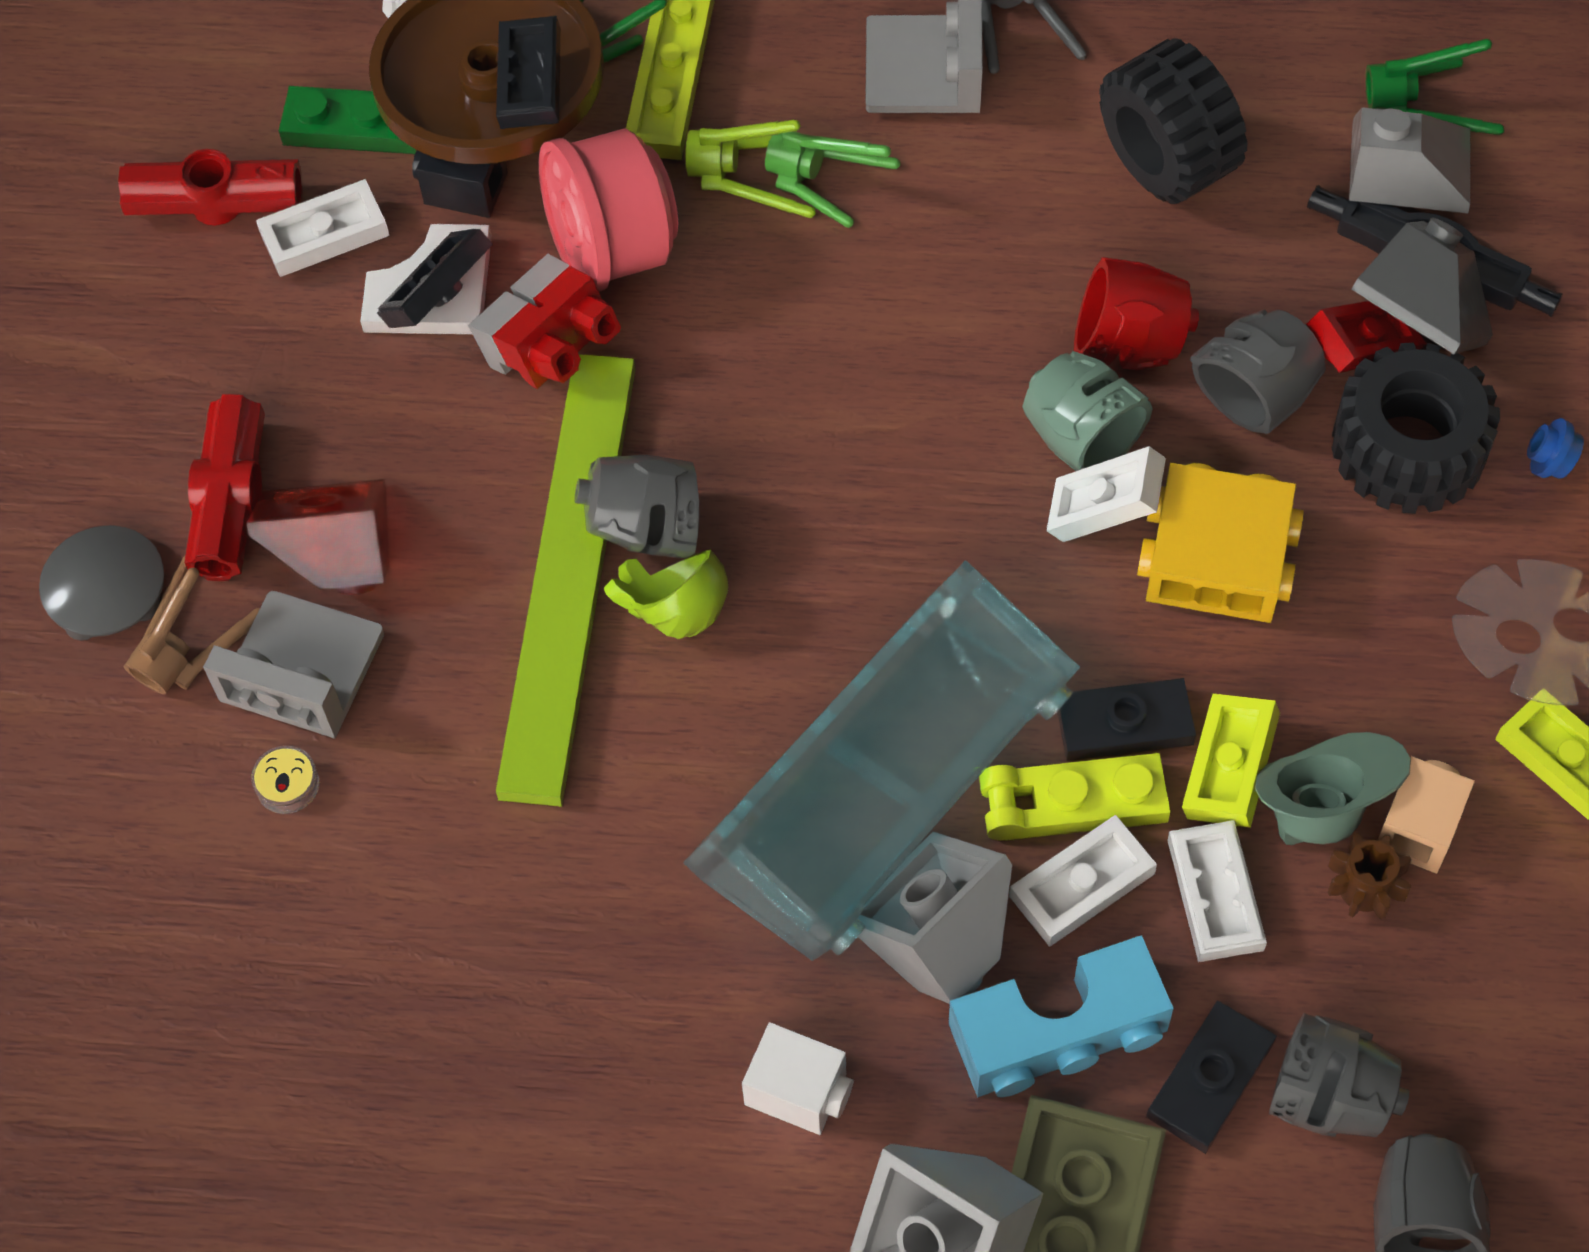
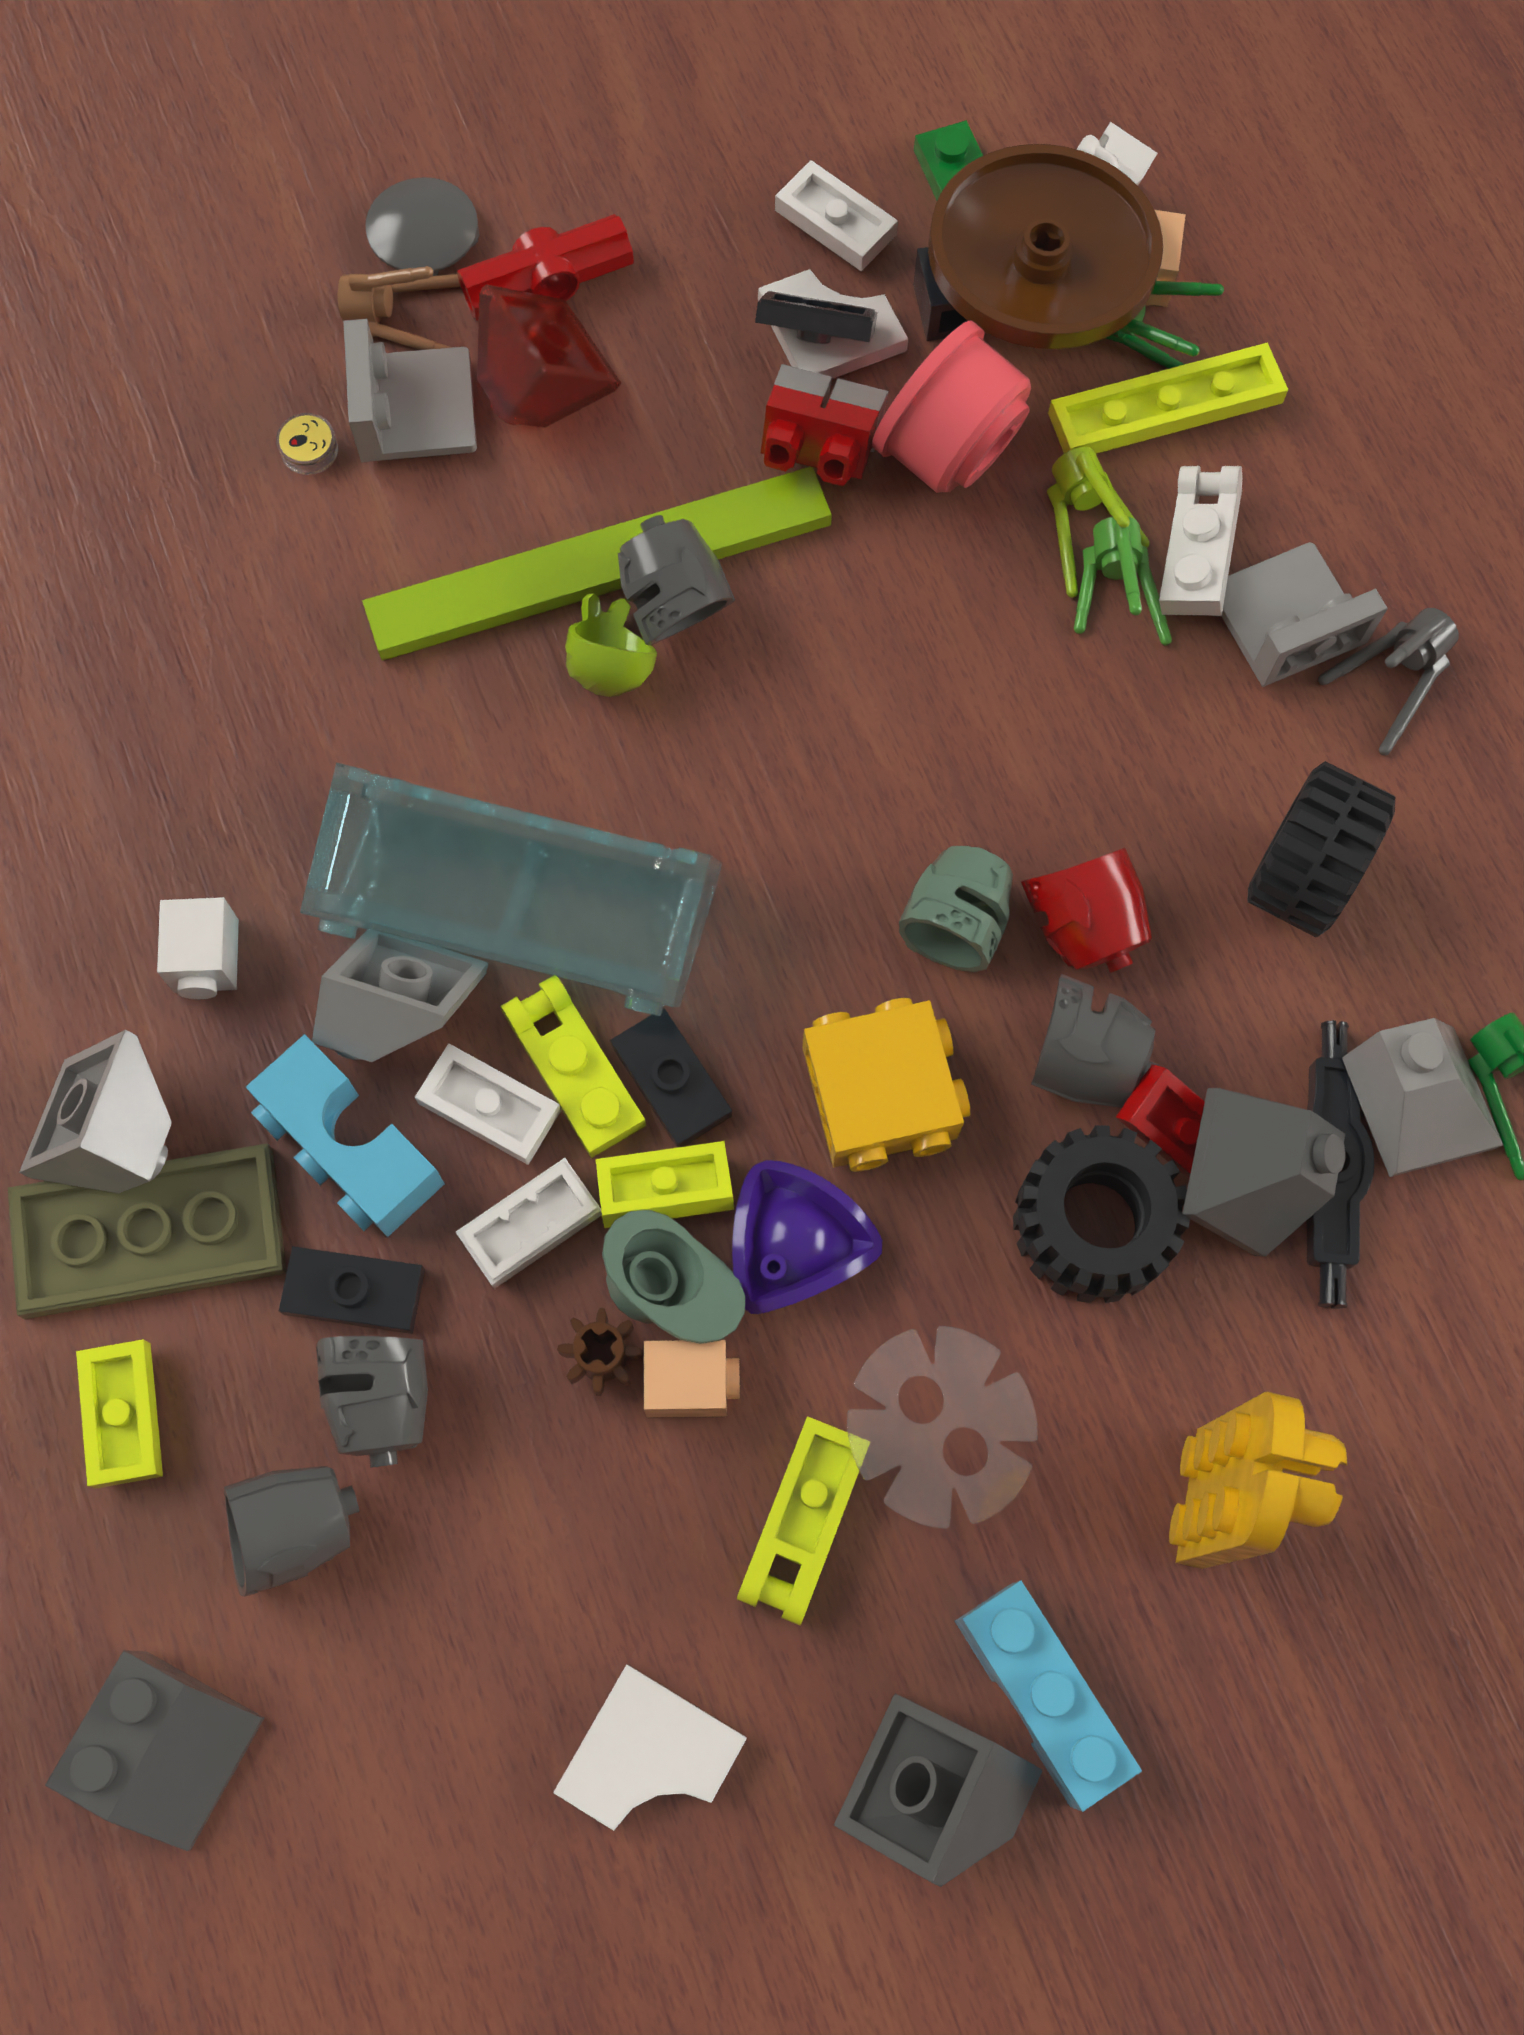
camera: 60 degrees right, 10 degrees up
(210, 187) = (828, 112): red piece -> none
(528, 72) = (1042, 274): black plate -> none
(823, 91) = (1201, 542): none -> white plate
(1106, 494) = (878, 963): white plate -> none
(1329, 670) = (796, 1236): none -> dark purple hat
(1554, 449) = (1152, 1360): blue plate -> none

